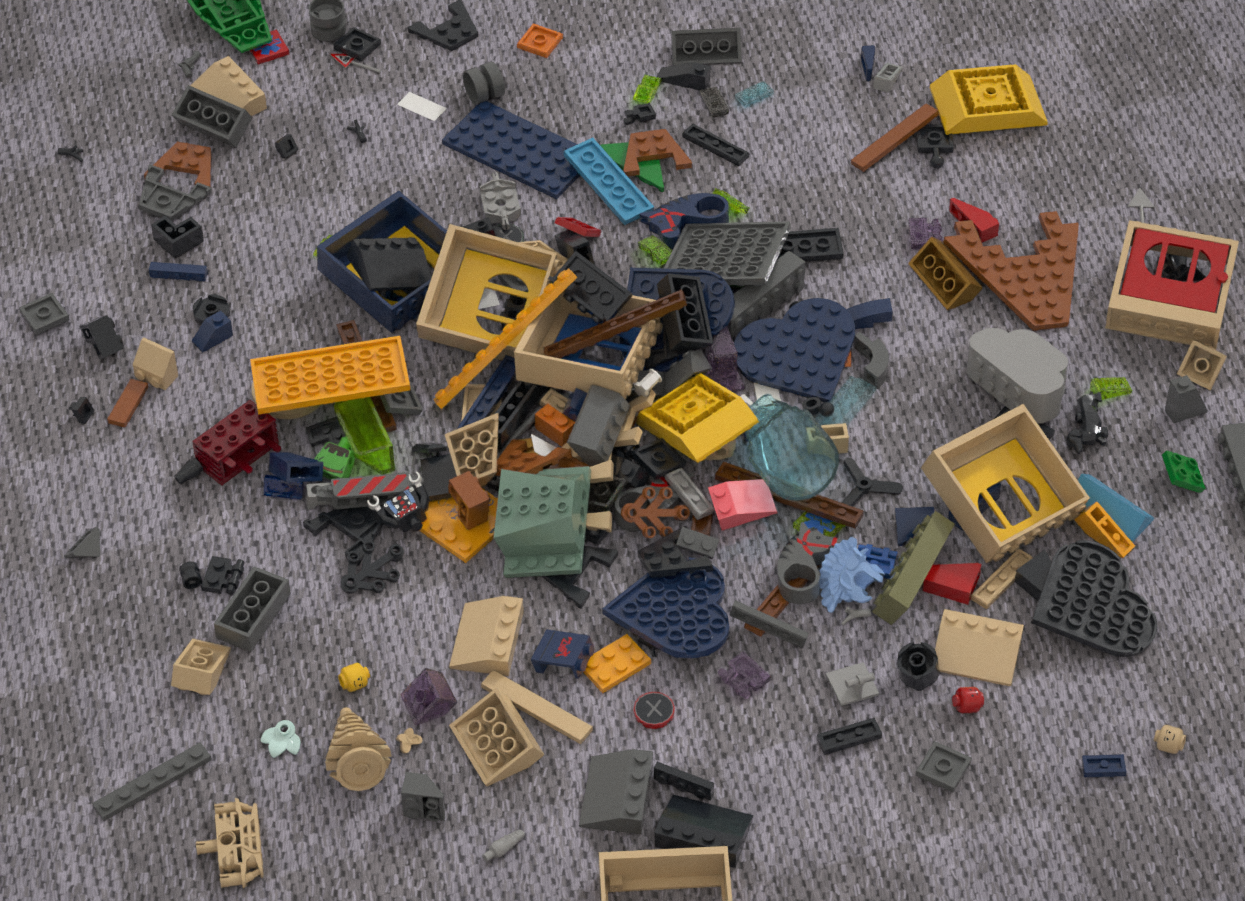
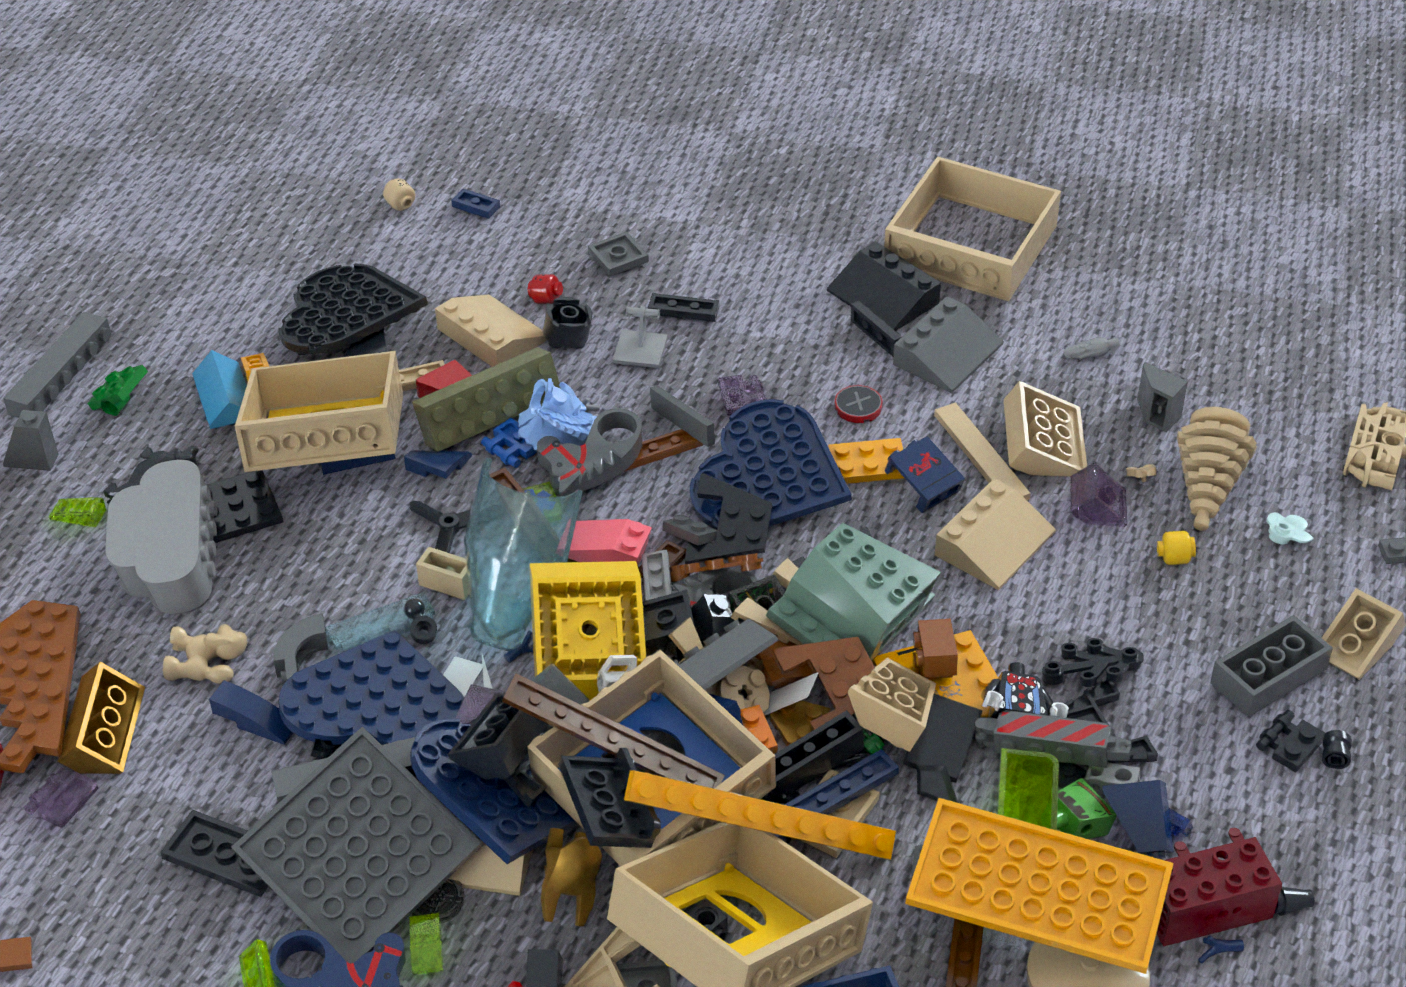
camera: 150 degrees left, 5 degrees down
(927, 330) = (199, 650): none -> tan animal

